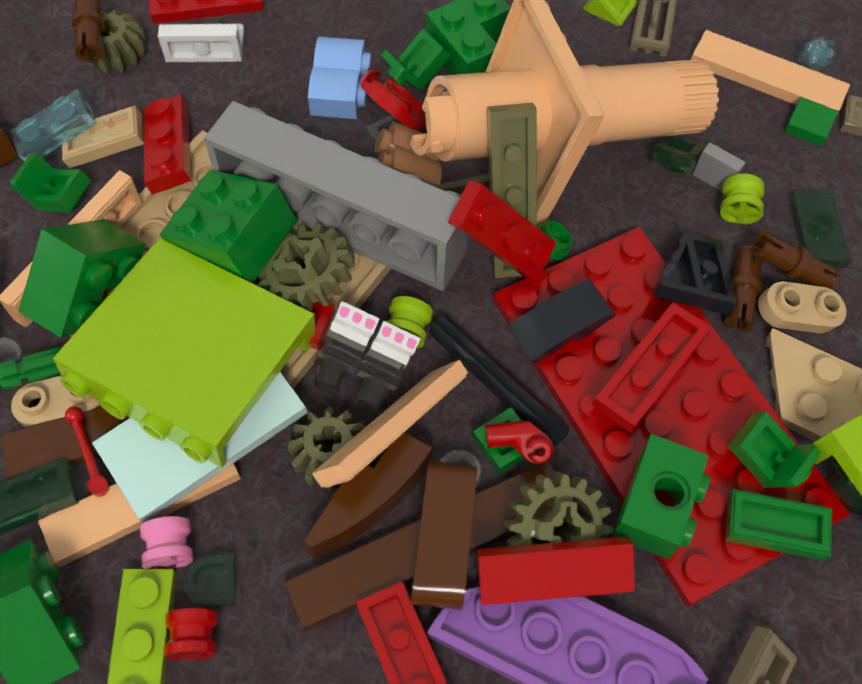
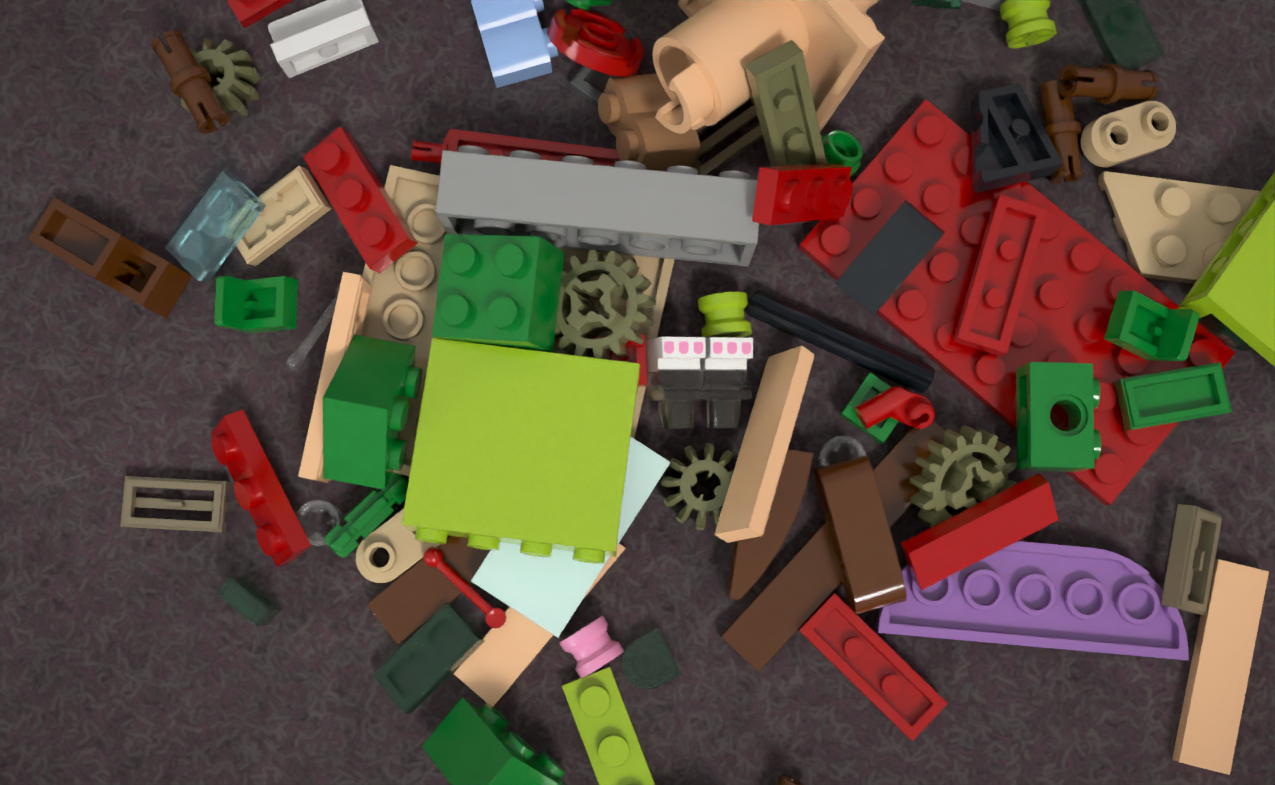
camera: 20 degrees left, 20 degrees up
(191, 634) = (659, 721): red wheel -> none

